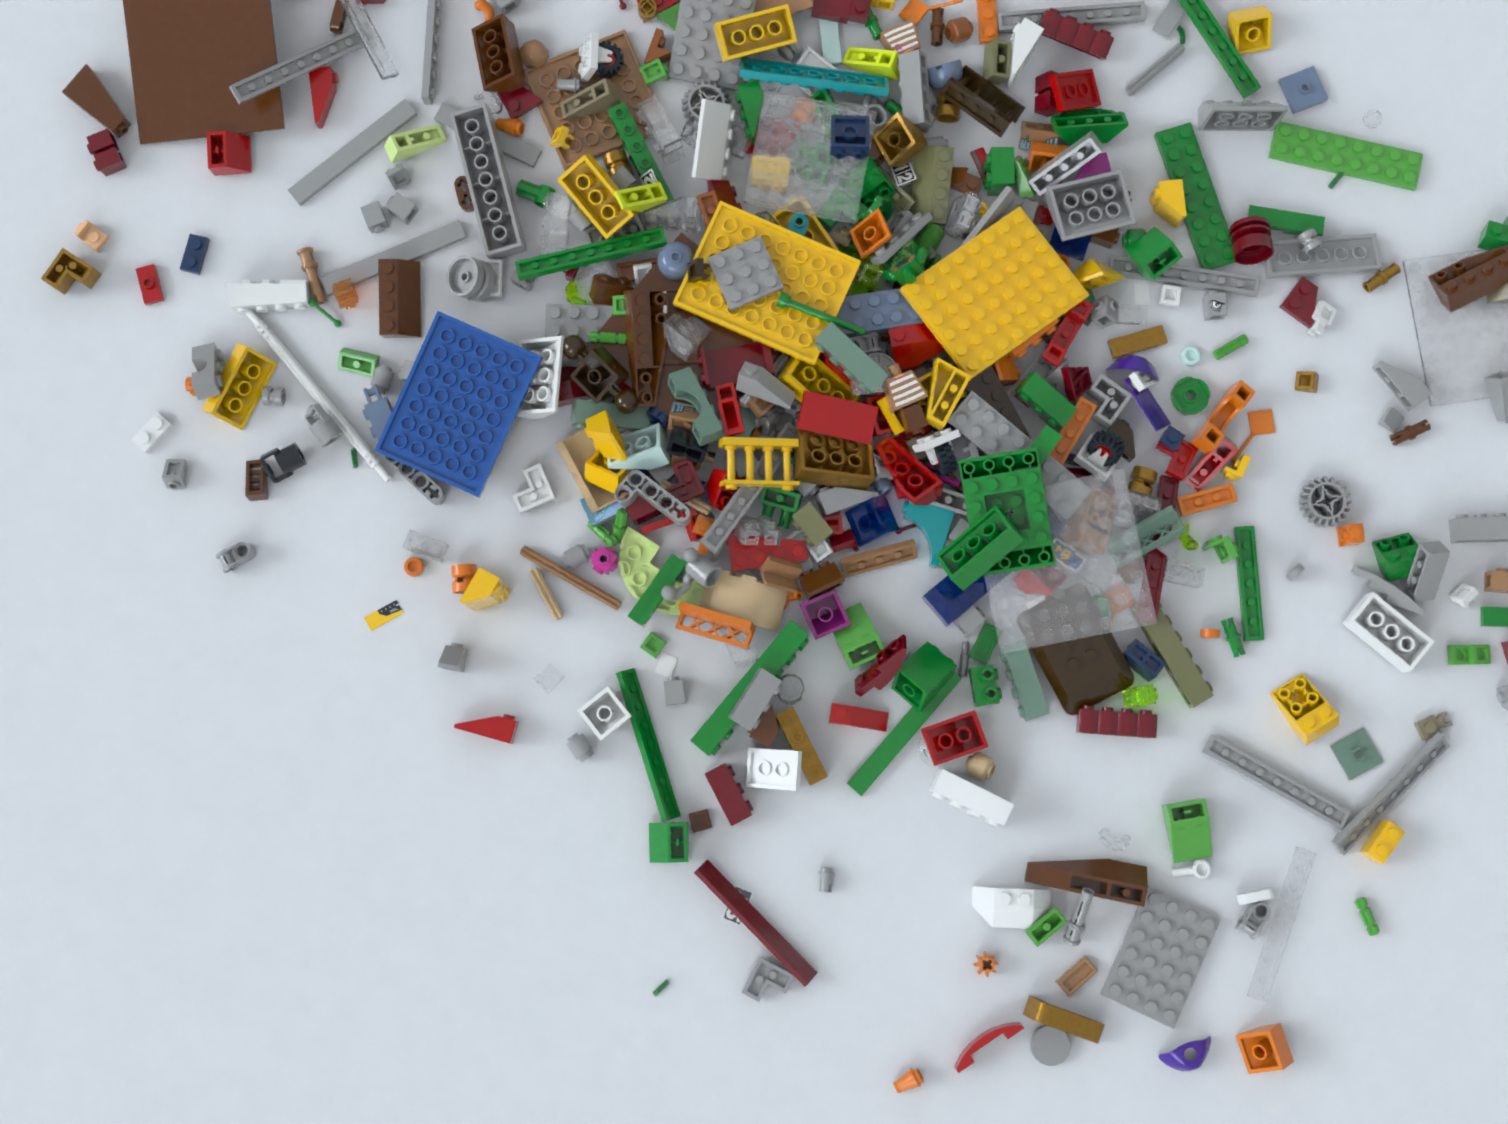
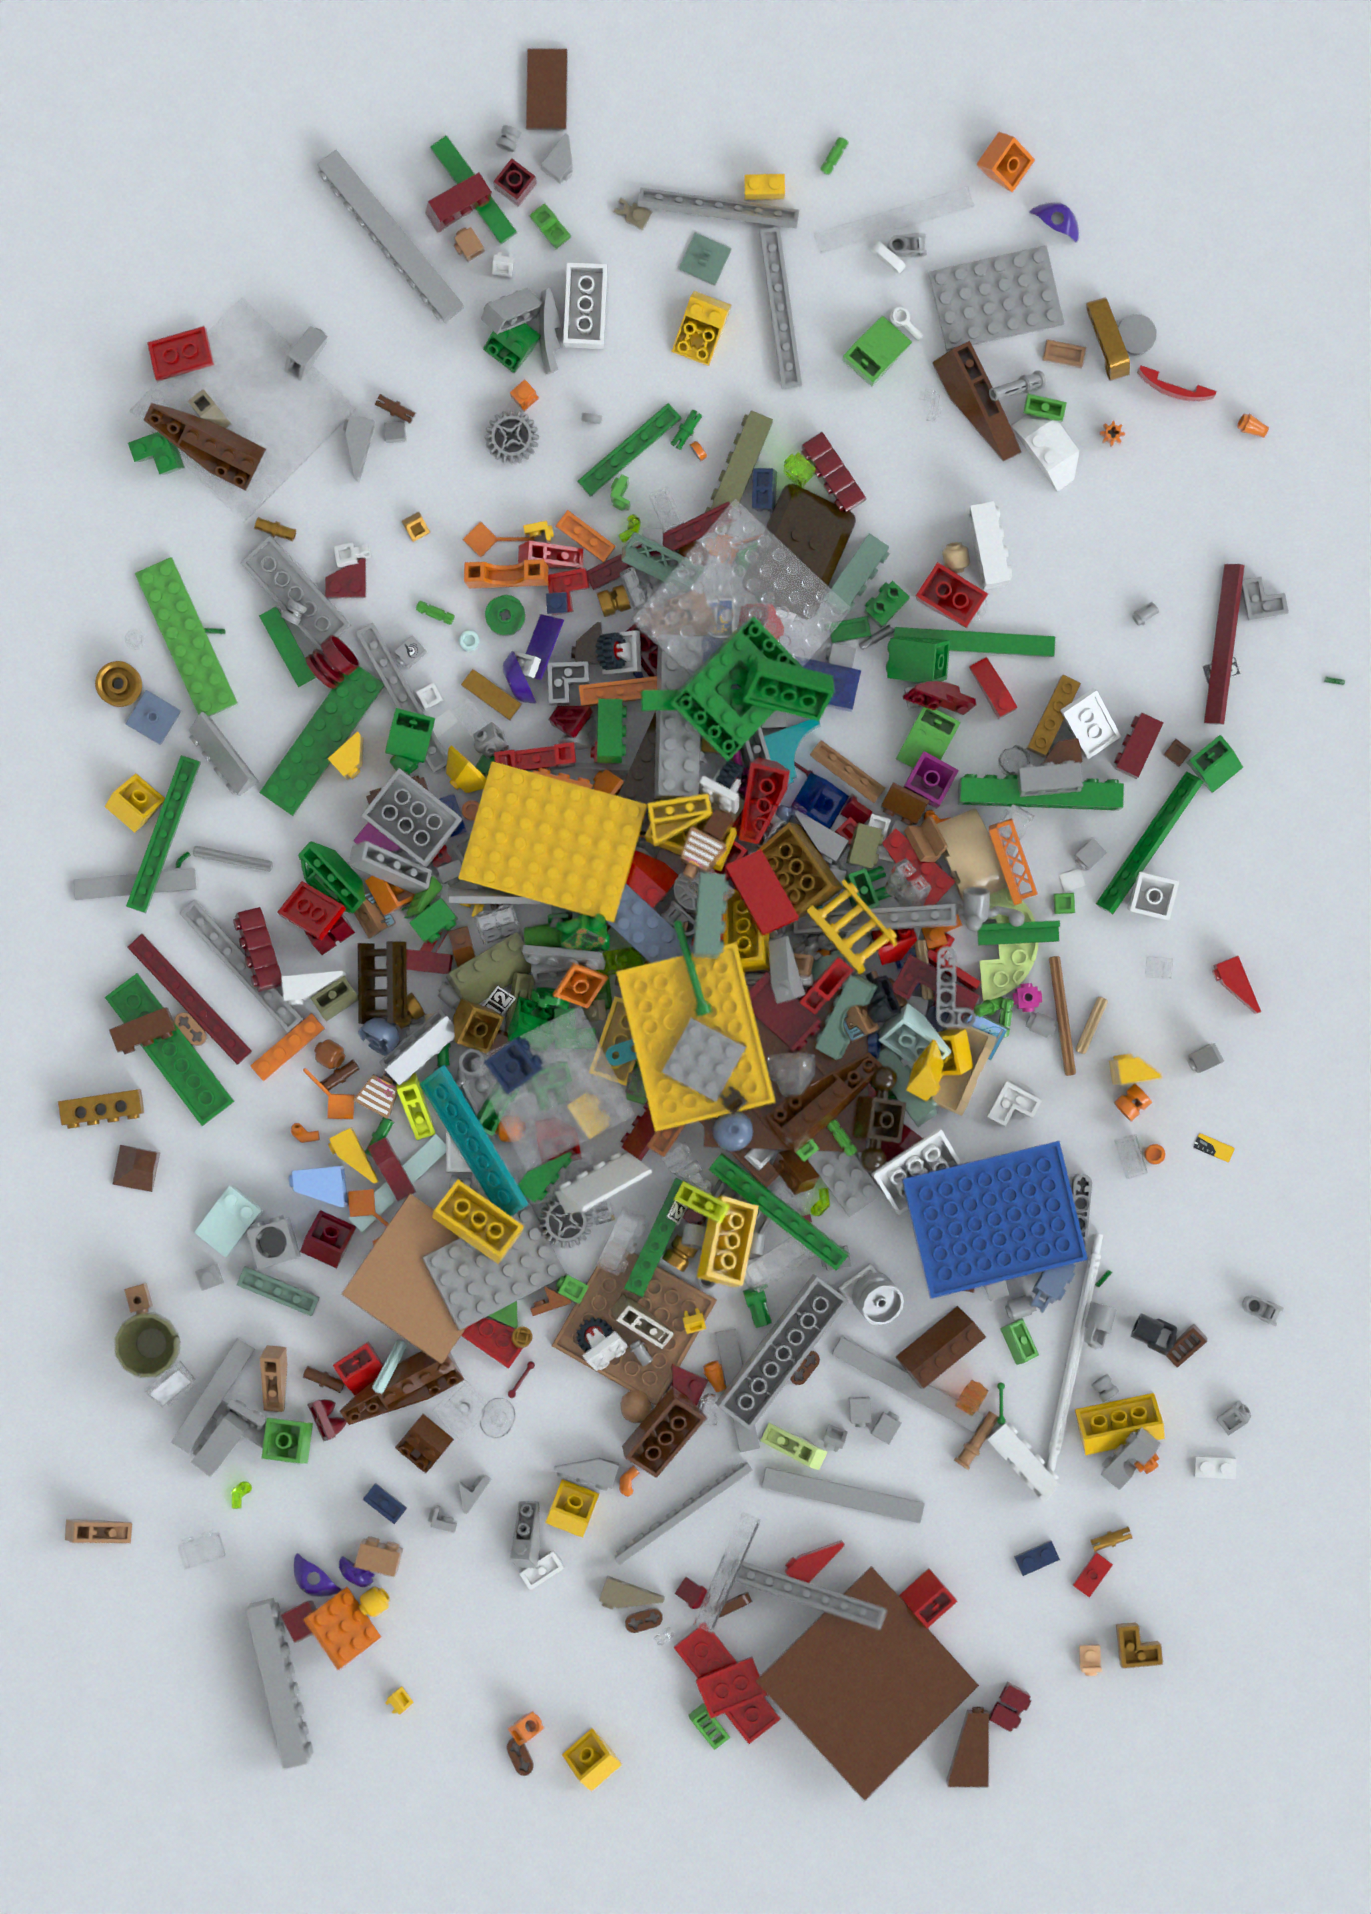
camera: 125 degrees left, 5 degrees up
(163, 316) = (1111, 1539): none -> pearl gold pin
(579, 747) = (1195, 897): light grey brick -> none
(974, 146) = (428, 961): none -> dark red slope
(1345, 92) = (105, 684): none -> pearl gold wheel

